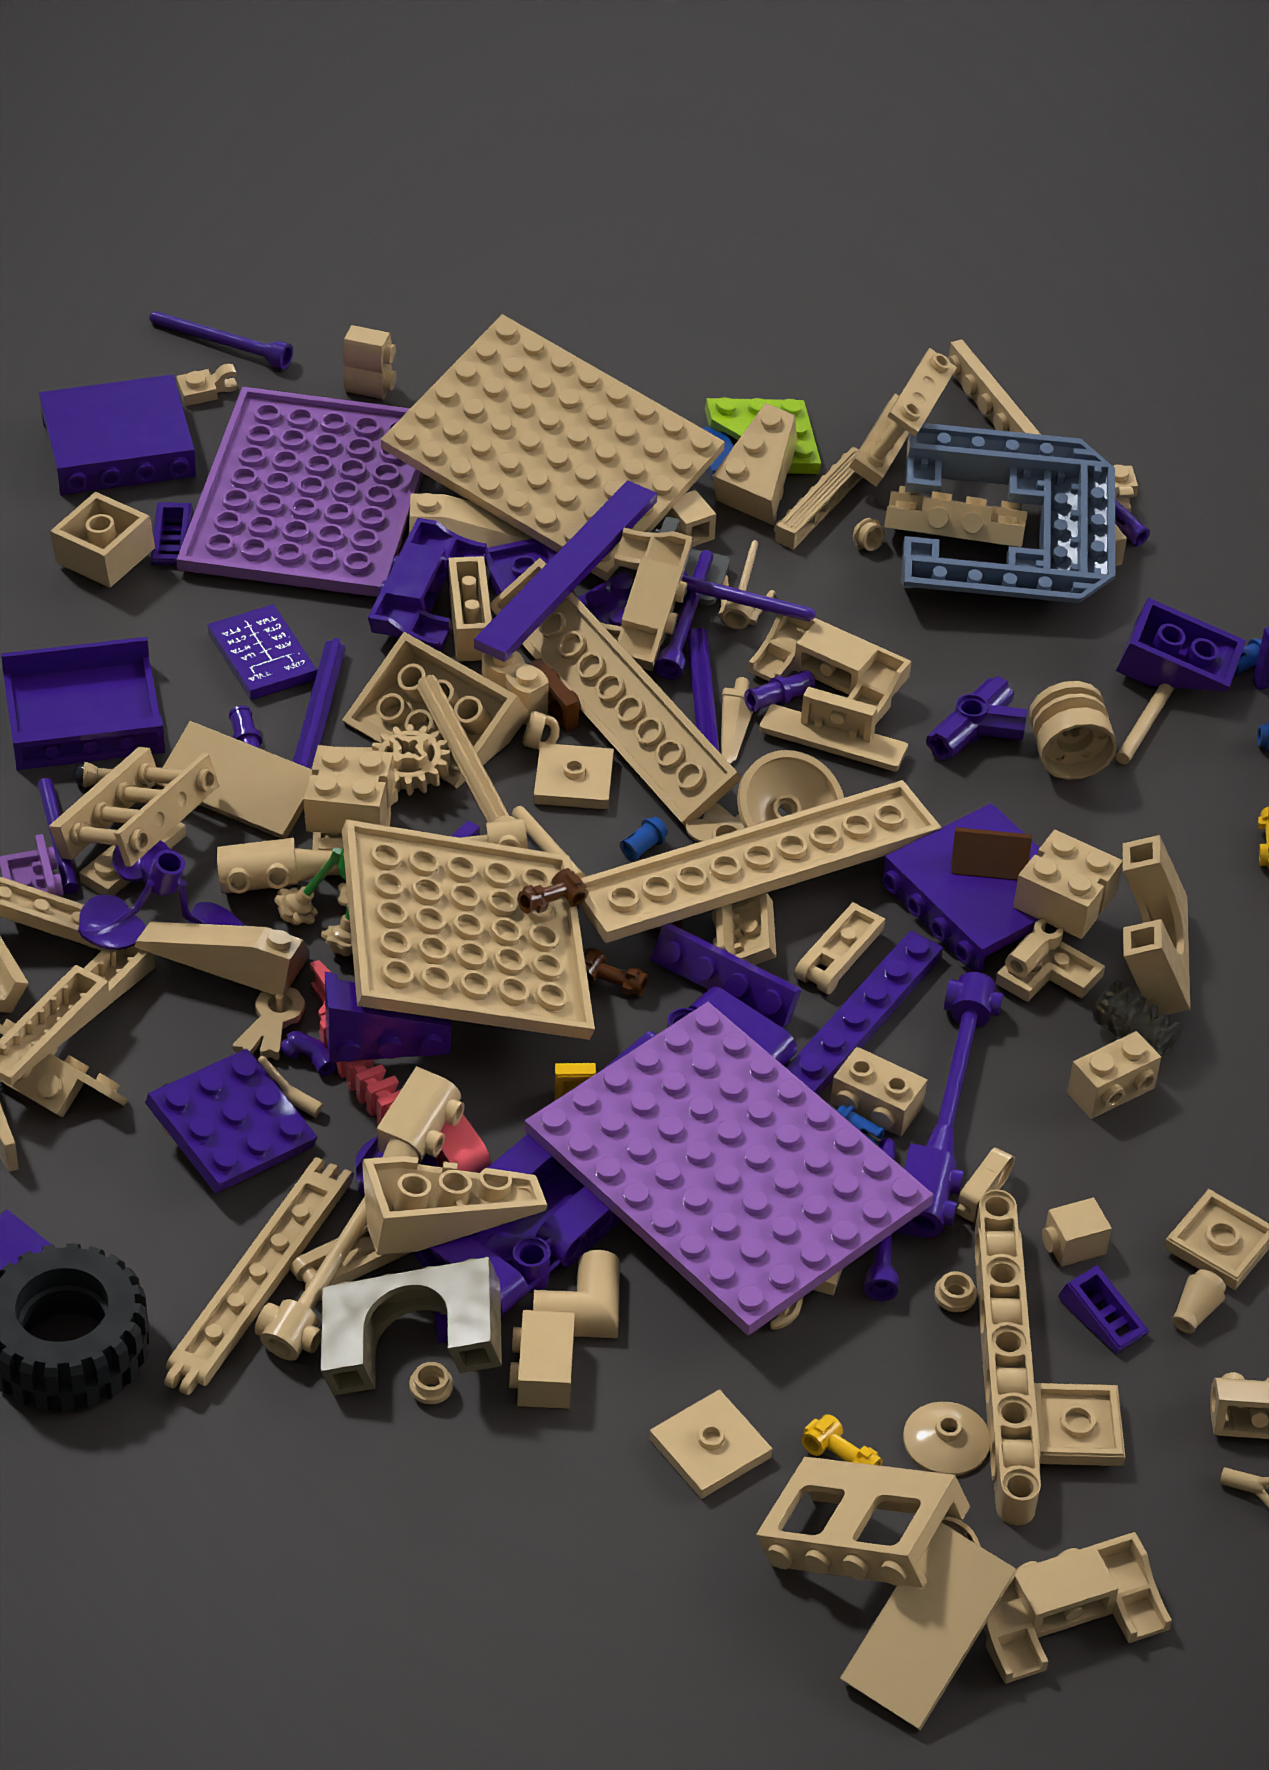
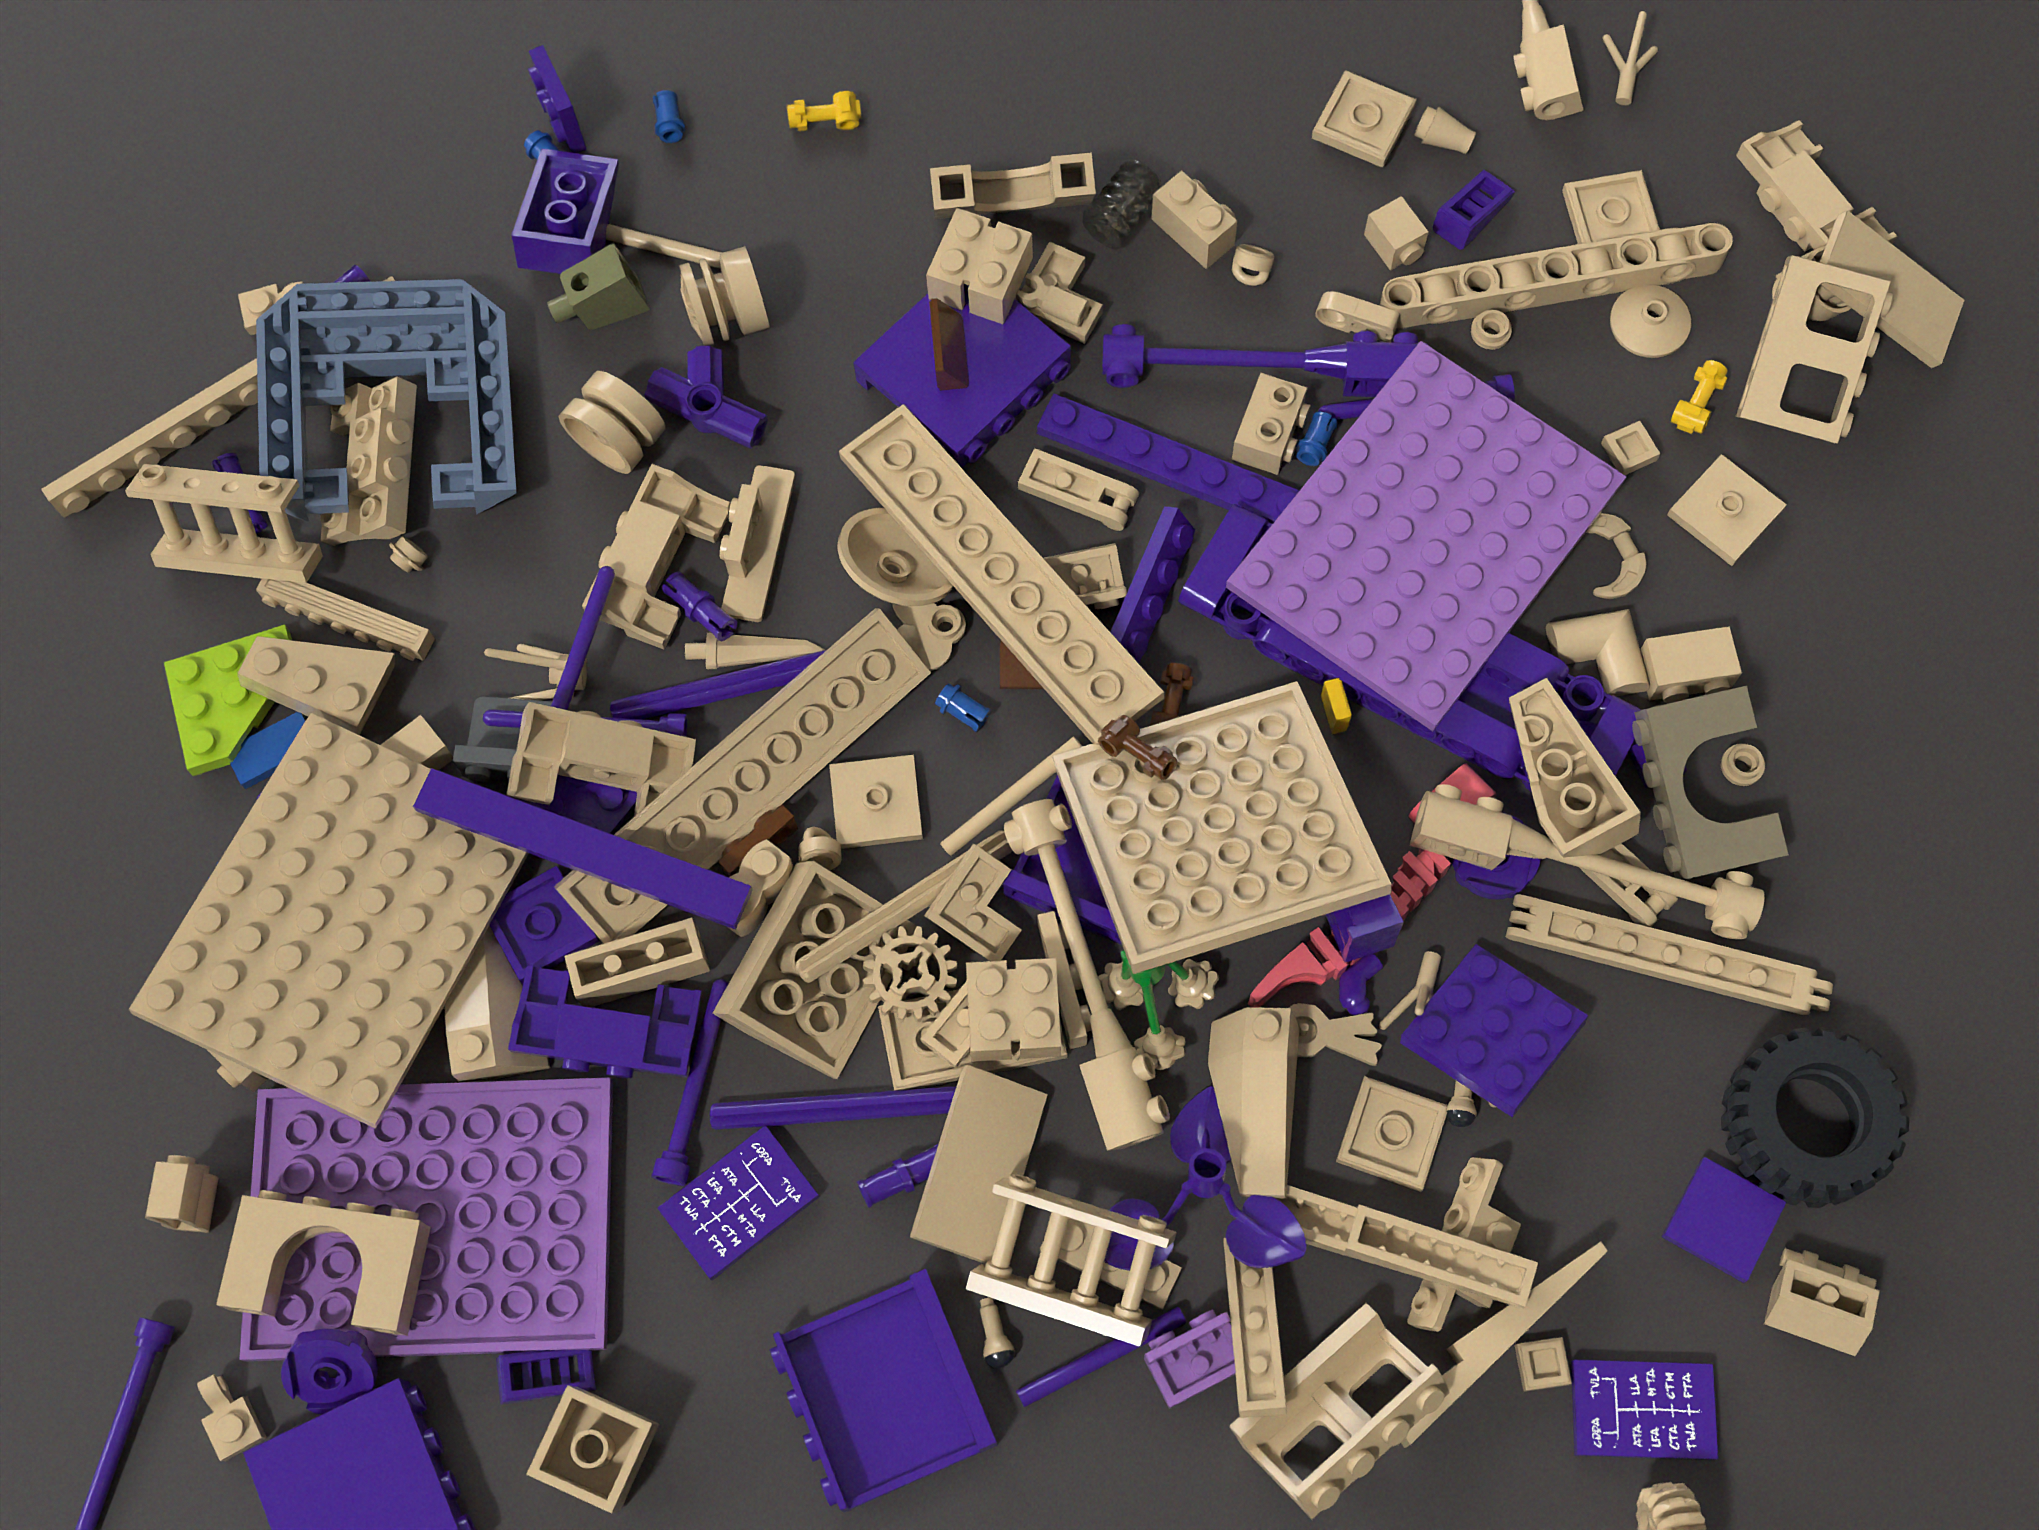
camera: 95 degrees left, 25 degrees up
(168, 1047) = (1392, 1134): none -> tan tile
(217, 423) = (329, 1348): none -> dark purple plate
(293, 450) = (273, 1229): none -> tan arch
(302, 617) = (672, 1165): none -> dark purple piece
(455, 797) = (964, 910): none -> tan plate
(666, 1351) = (1634, 564): none -> tan piece
(795, 1372) = (1630, 448): none -> tan plate
(957, 645) = (612, 422): none -> tan wheel
(1063, 1116) = (1254, 259): none -> tan tile
(1098, 653) = (599, 291): none -> olive torso

